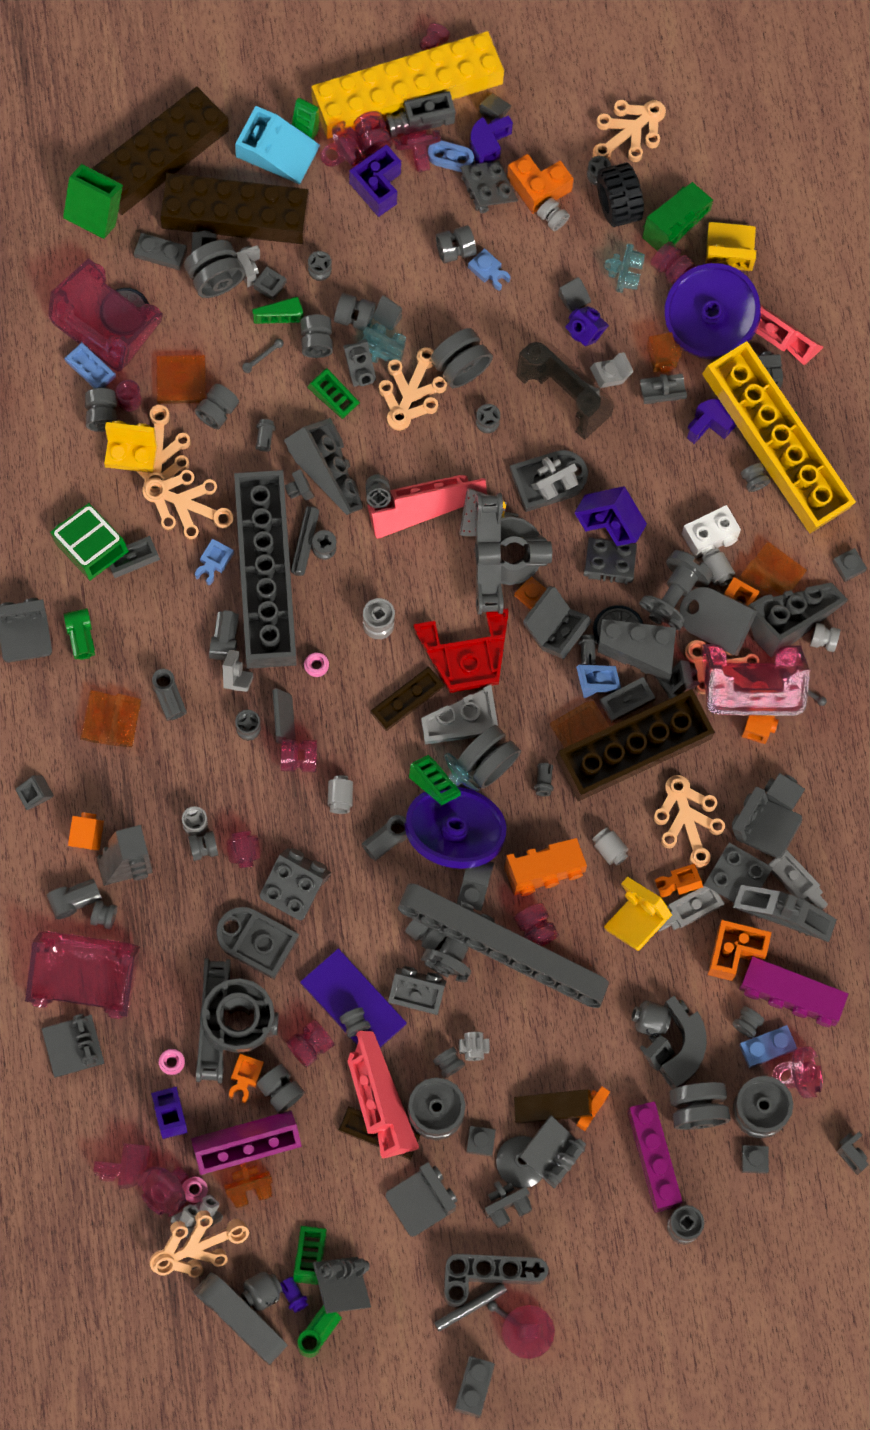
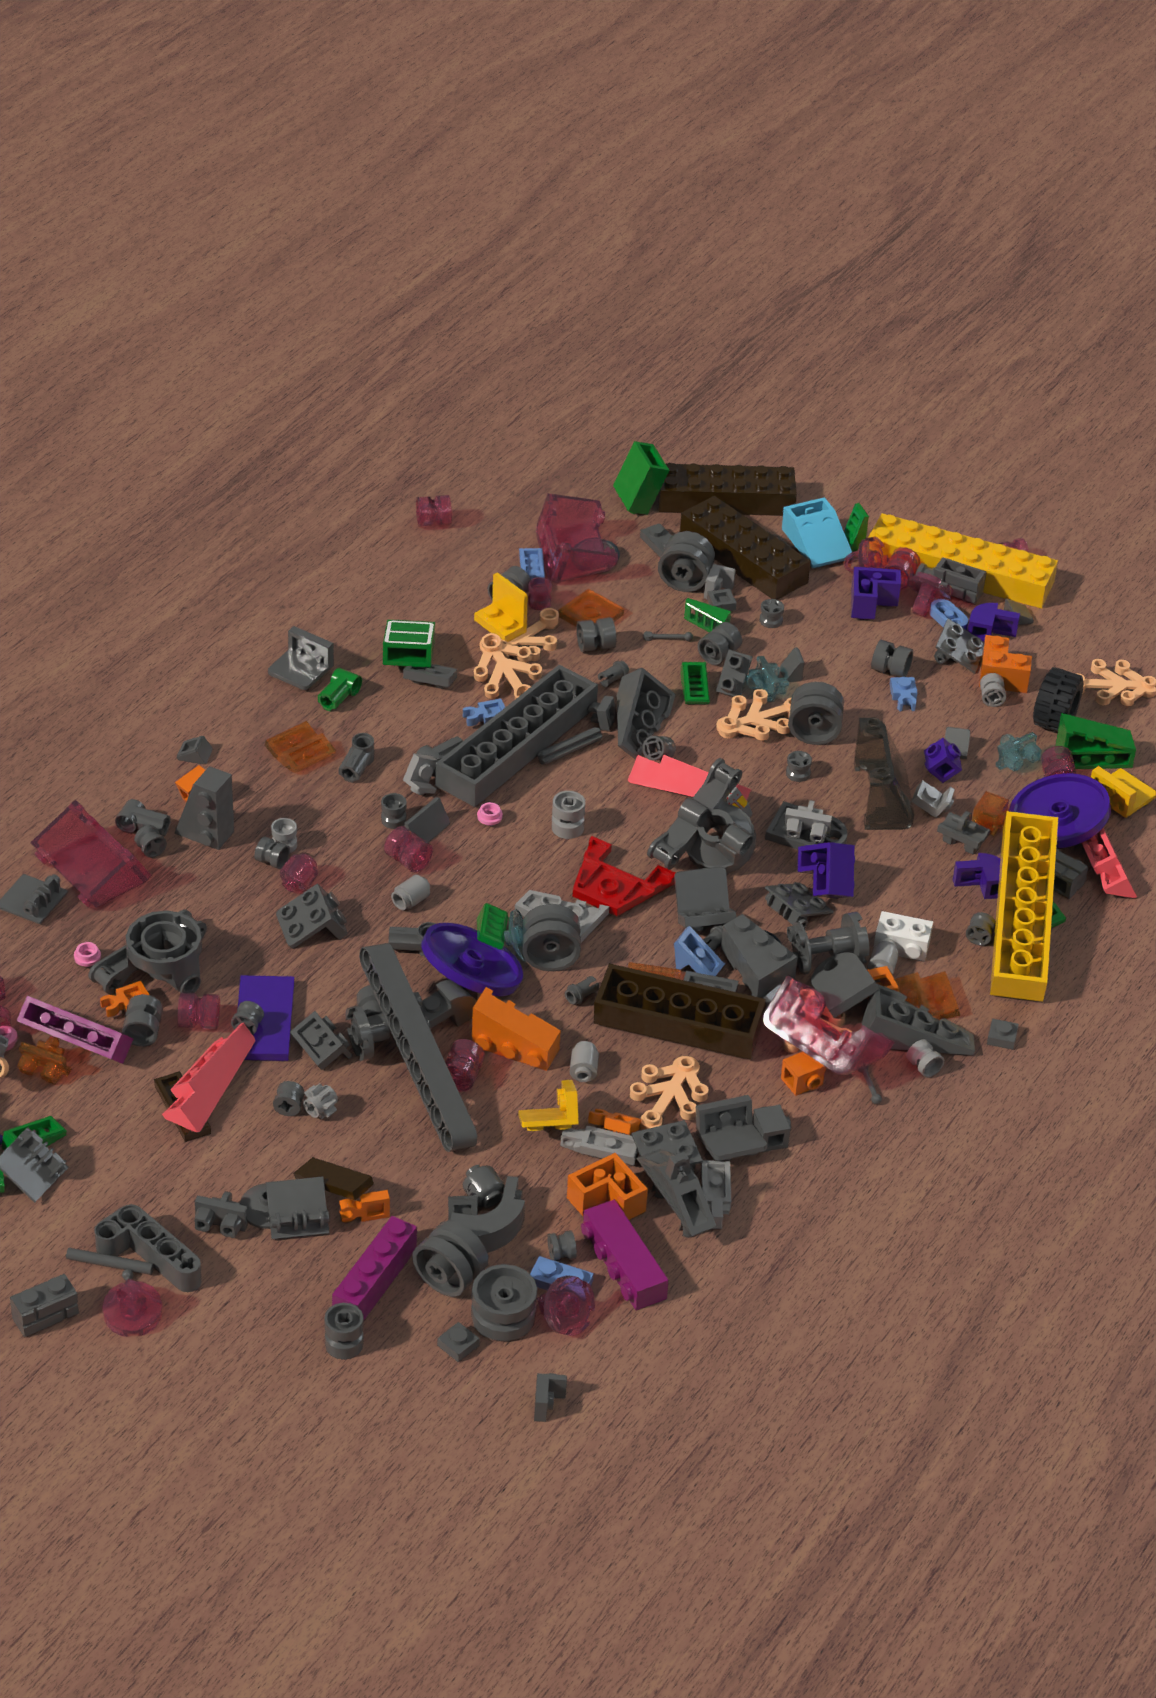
camera: 45 degrees right, 30 degrees down
(169, 1113) = (41, 975): dark purple brick -> none
(258, 941) = (241, 936): dark grey tile -> none
(324, 551) = (581, 755): dark grey wheel -> none
(346, 310) = (764, 643): dark grey wheel -> none
(407, 698) = (534, 878): dark brown tile -> none
(421, 1200) = (159, 1165): dark grey bracket -> none
(450, 1103) = (241, 1113): dark grey wheel -> none
(481, 1141) = (252, 1167): dark grey plate -> none

